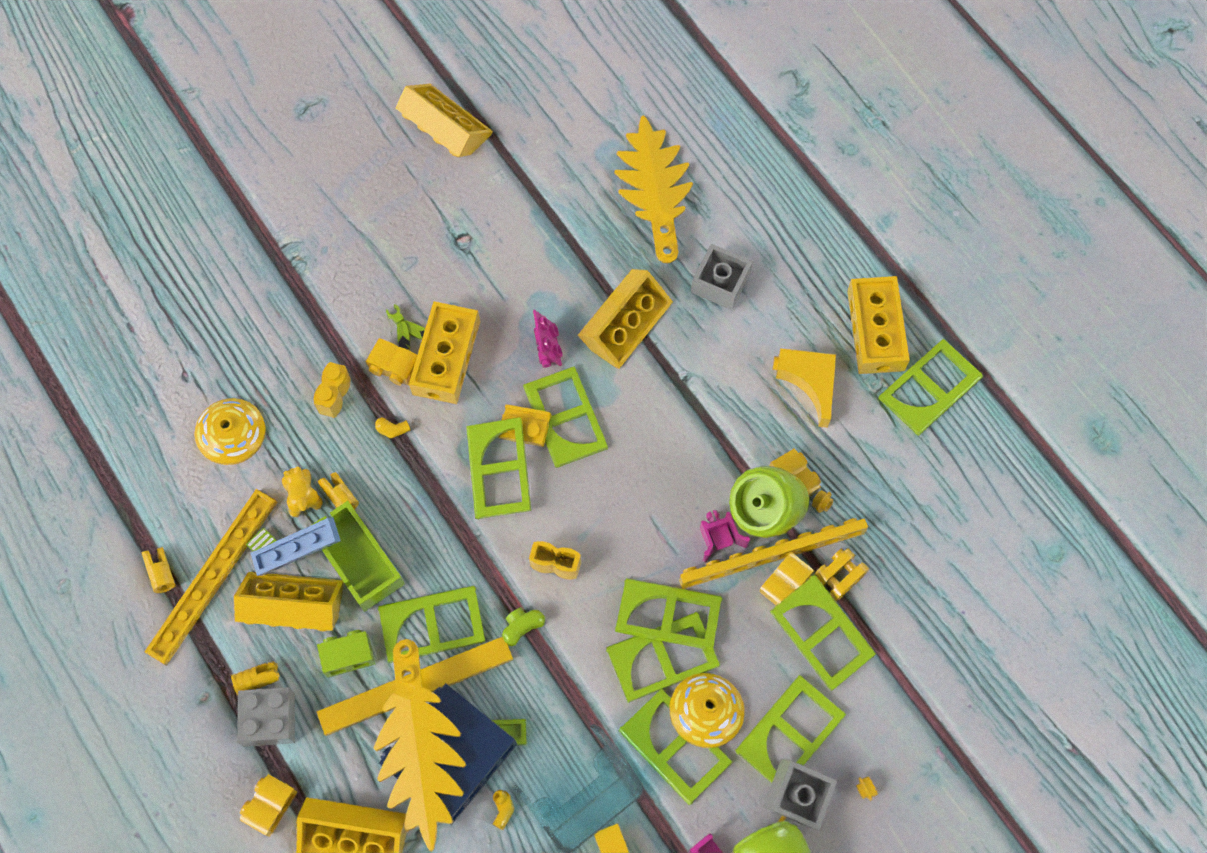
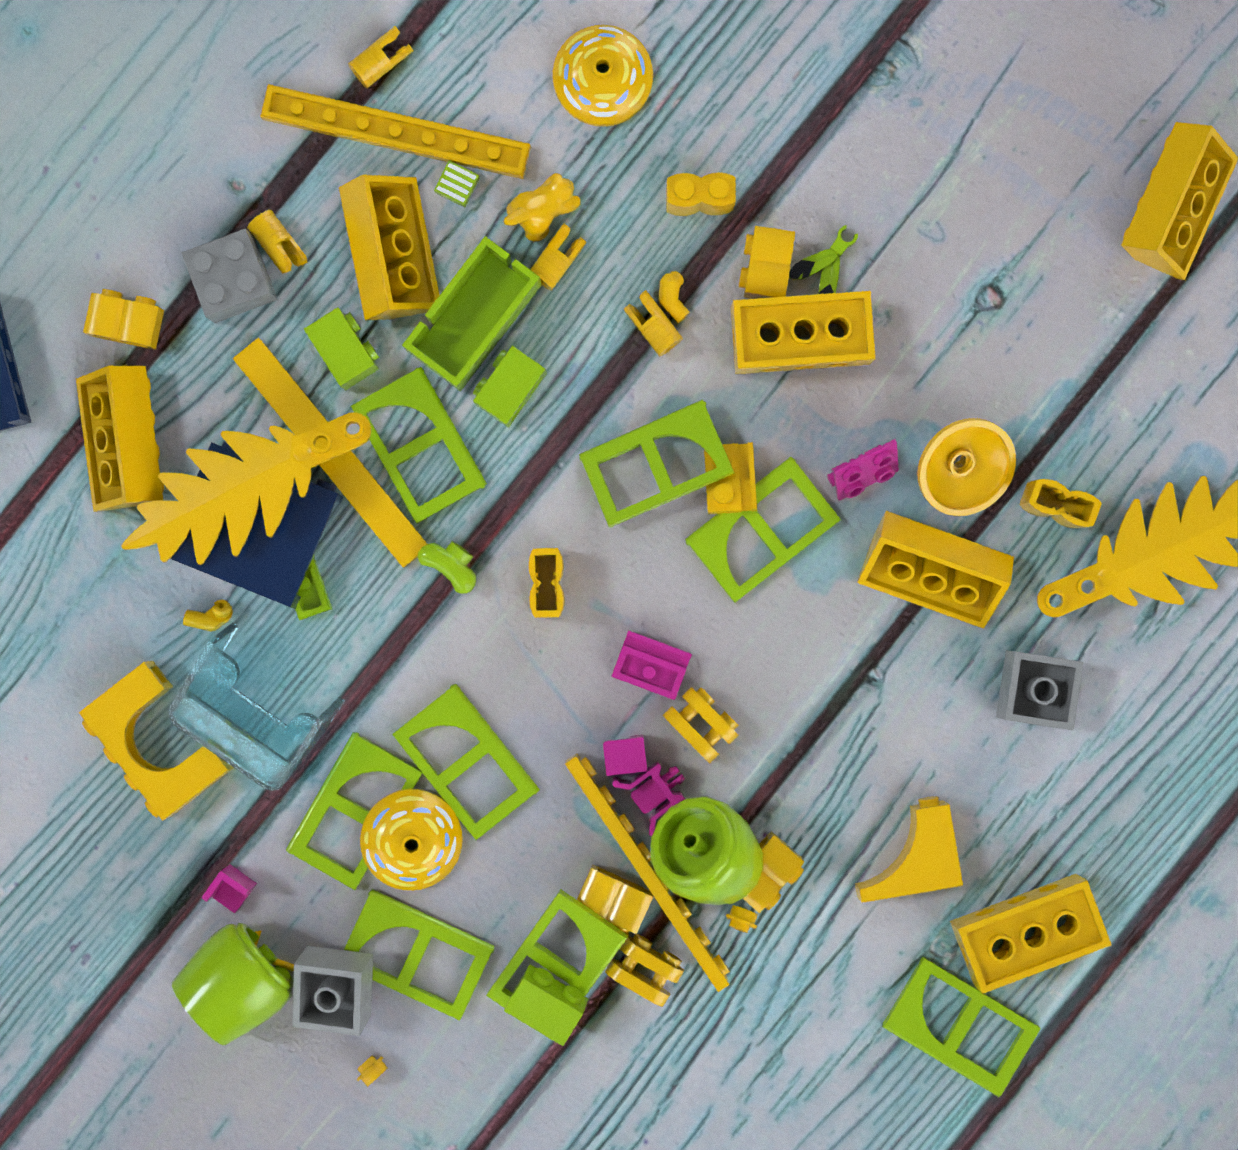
camera: 70 degrees right, 20 degrees up
(295, 546) = (454, 231): medium blue plate -> none
(411, 442) = (658, 329): none -> yellow hinge
(413, 548) = (509, 385): none -> lime brick
(565, 279) = (979, 475): none -> yellow dish
(605, 234) = (1066, 507): none -> yellow brick
(633, 511) = (651, 665): none -> dark pink plate
(638, 592) = (543, 705): lime window -> none
(669, 487) = (722, 725): none -> yellow brick
(689, 543) = (625, 755): none -> dark pink panel
(847, 643) = (546, 1004): none -> lime brick

